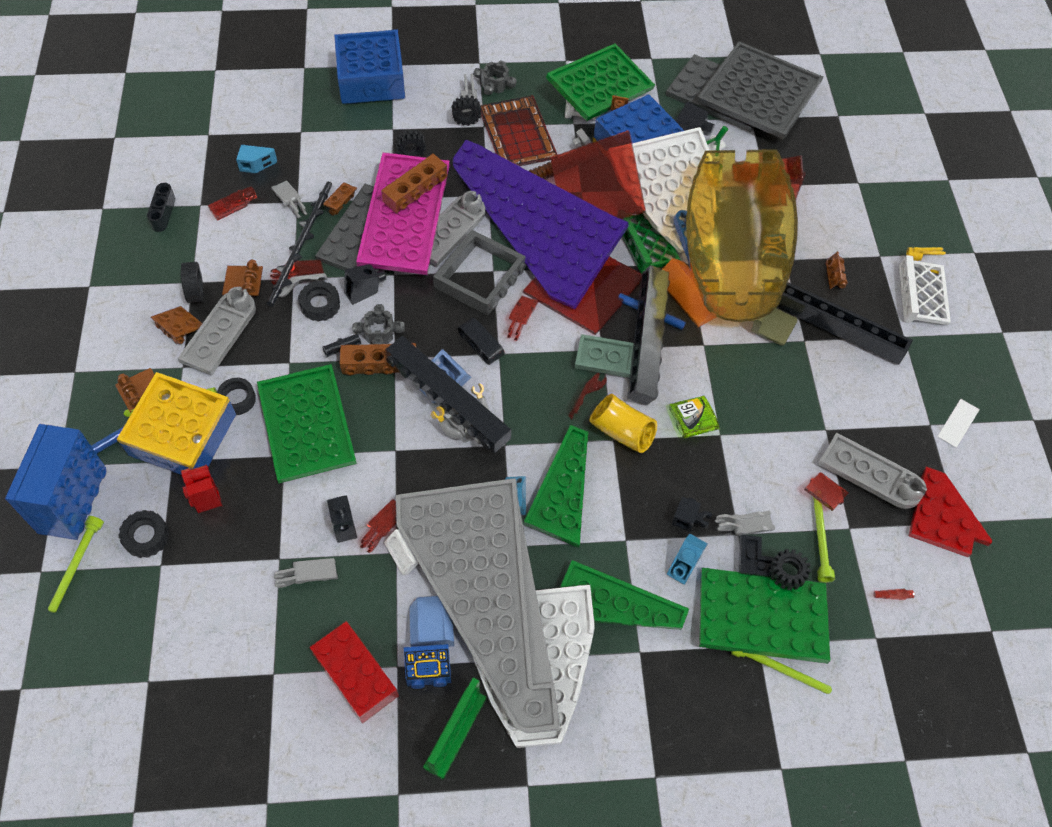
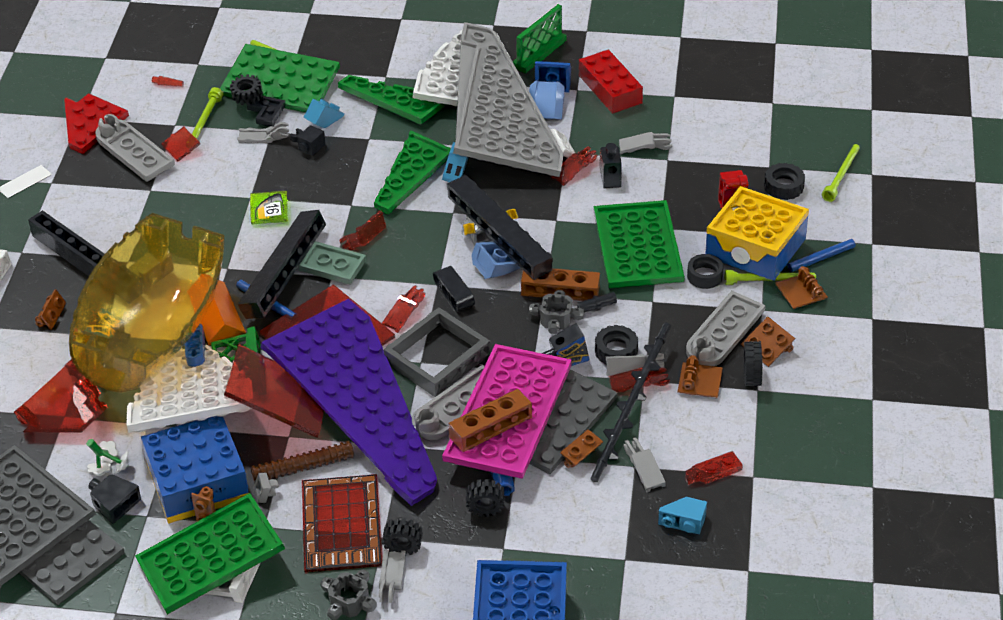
camera: 165 degrees left, 15 degrees down
(57, 482) = (856, 190): blue piece -> none
(161, 207) = (798, 466): black beam -> none
(624, 423) = (340, 197): yellow brick -> none

